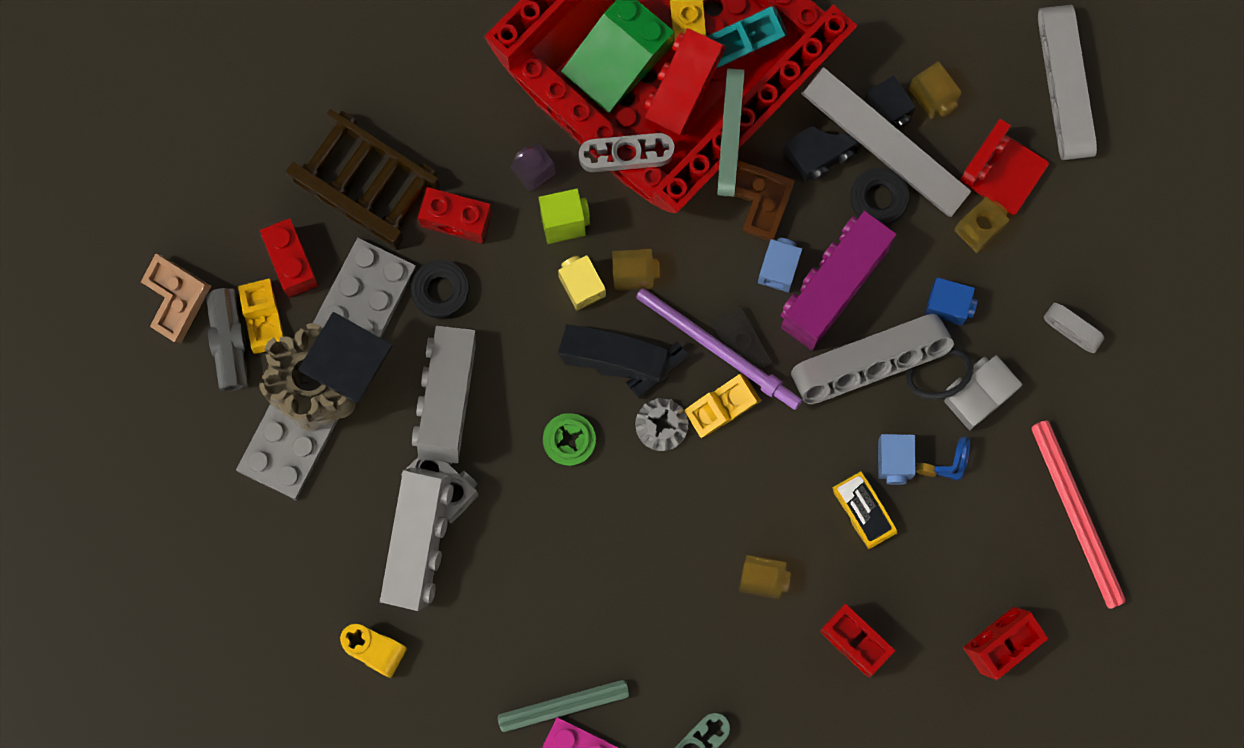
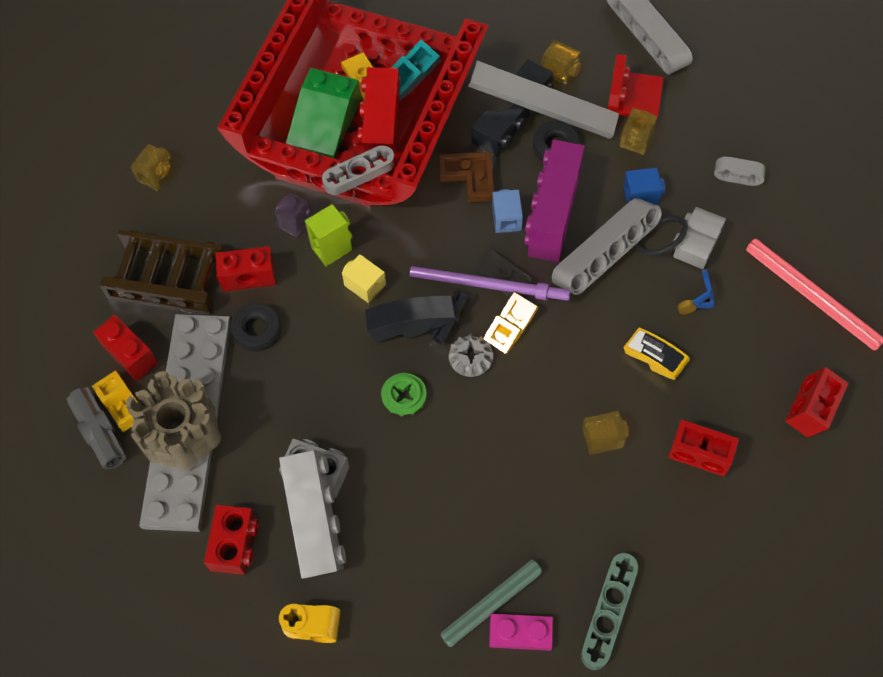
camera: 20 degrees left, 15 degrees down
(182, 295) = (47, 409): medium nougat plate -> none
(316, 522) = (223, 539): none -> red brick
(345, 357) = (196, 385): black tile -> none
(397, 32) = (151, 166): none -> clear yellow brick
(446, 394) = (291, 396): light grey brick -> none
(634, 269) = (399, 254): clear yellow brick -> none
(730, 132) = (431, 116): sand green beam -> none
(896, 458) = (660, 306): medium blue brick -> none

